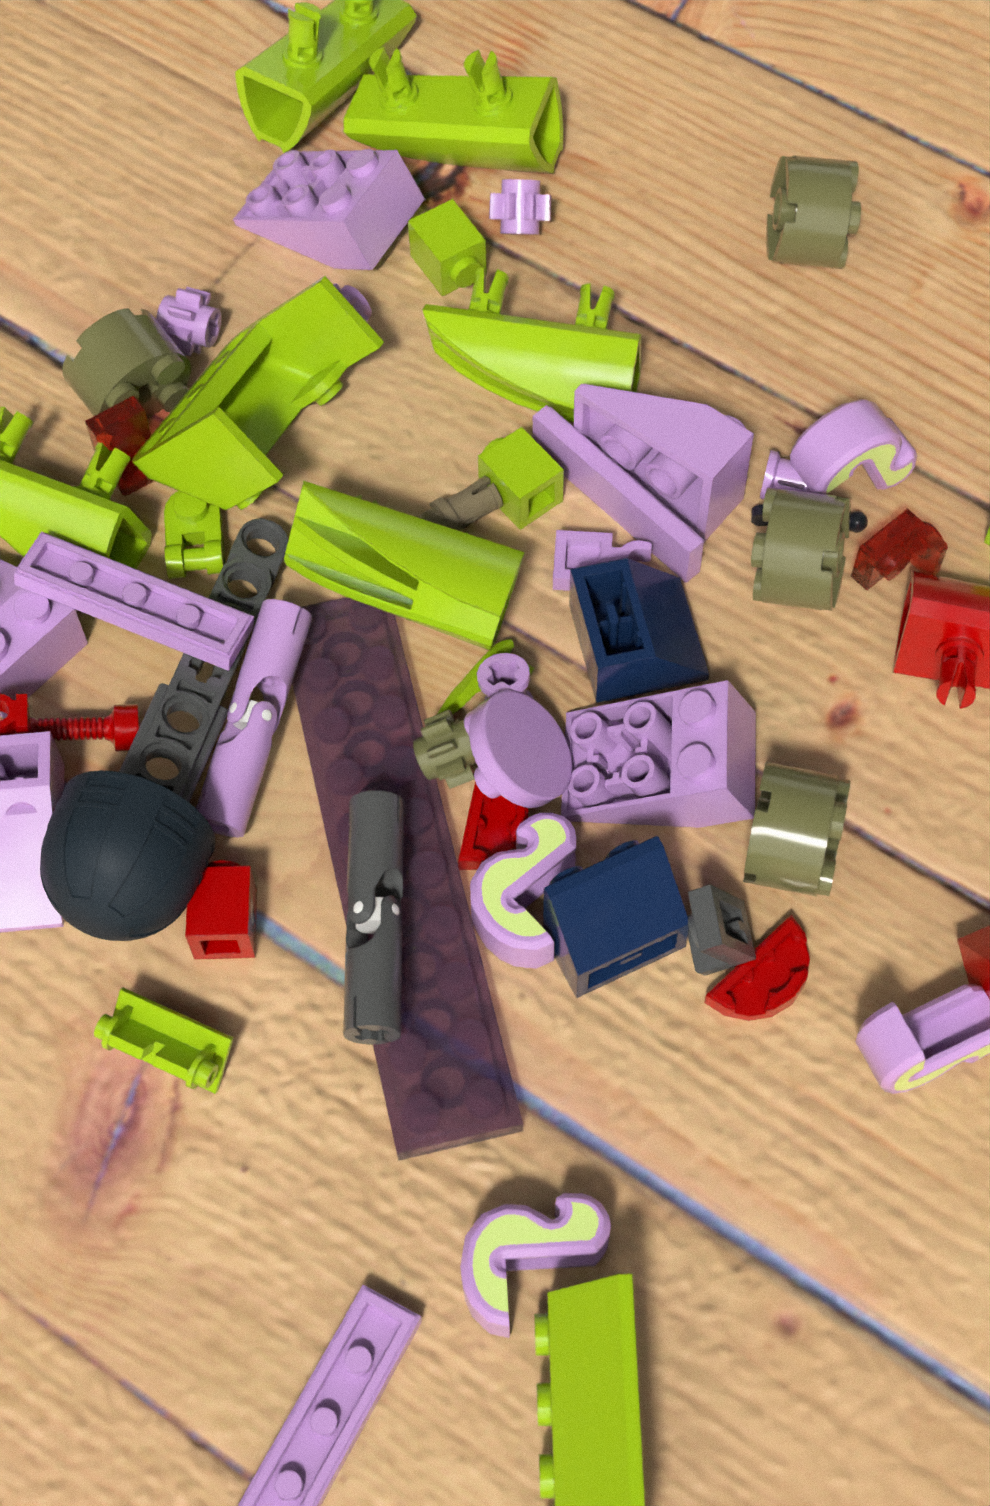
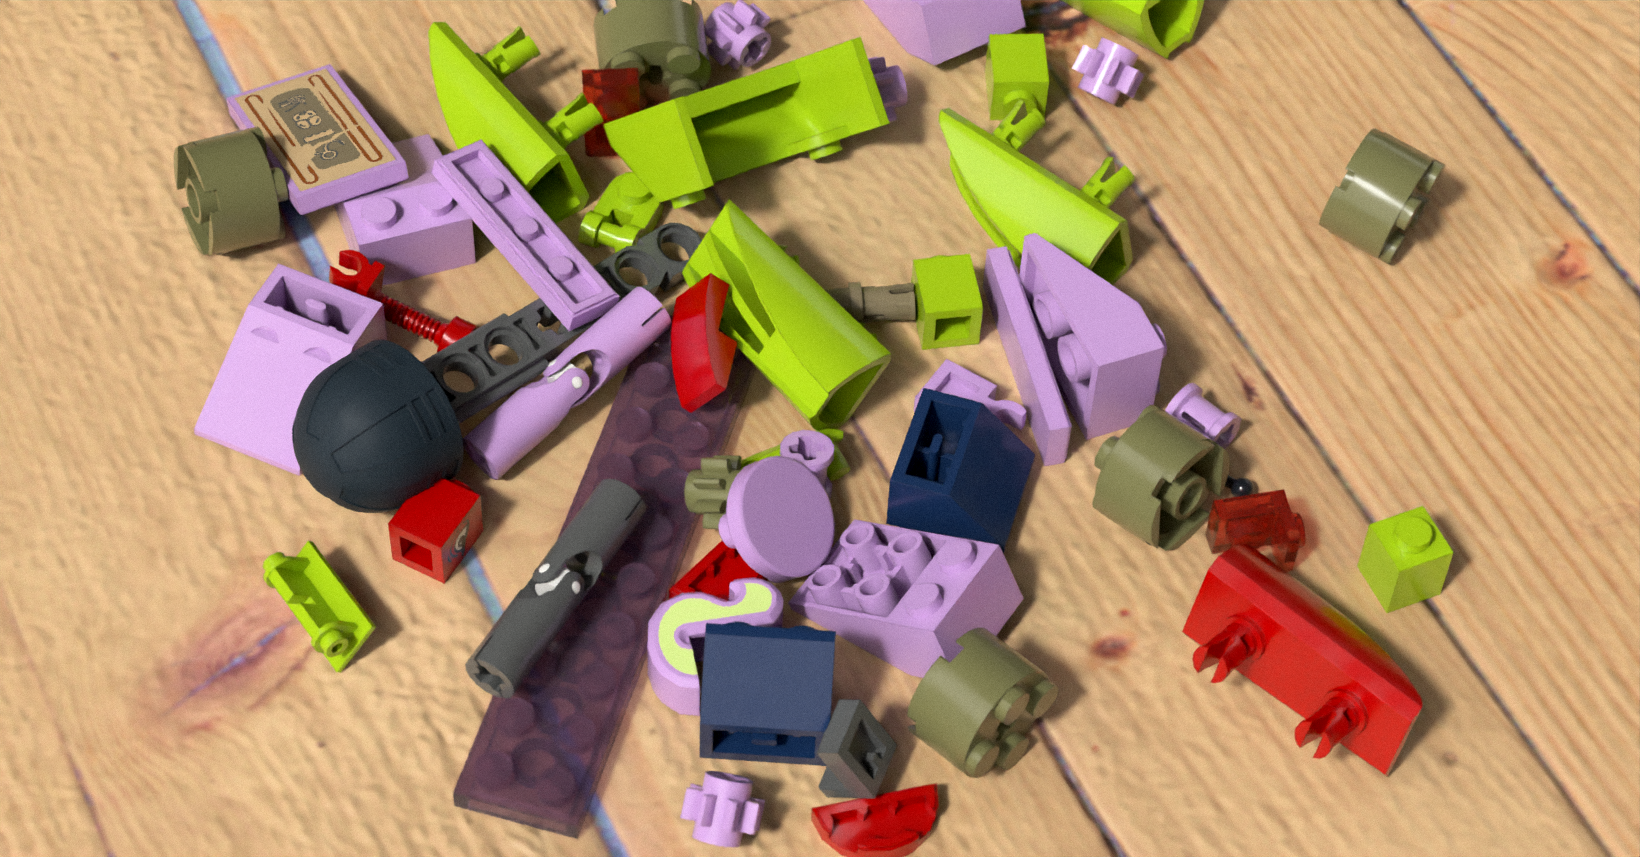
camera: 25 degrees right, 10 degrees down
(356, 633) = (698, 350): none -> red slope
(639, 1040) = (722, 809): none -> lavender gear
(851, 437) = (1280, 403): lavender animal -> none

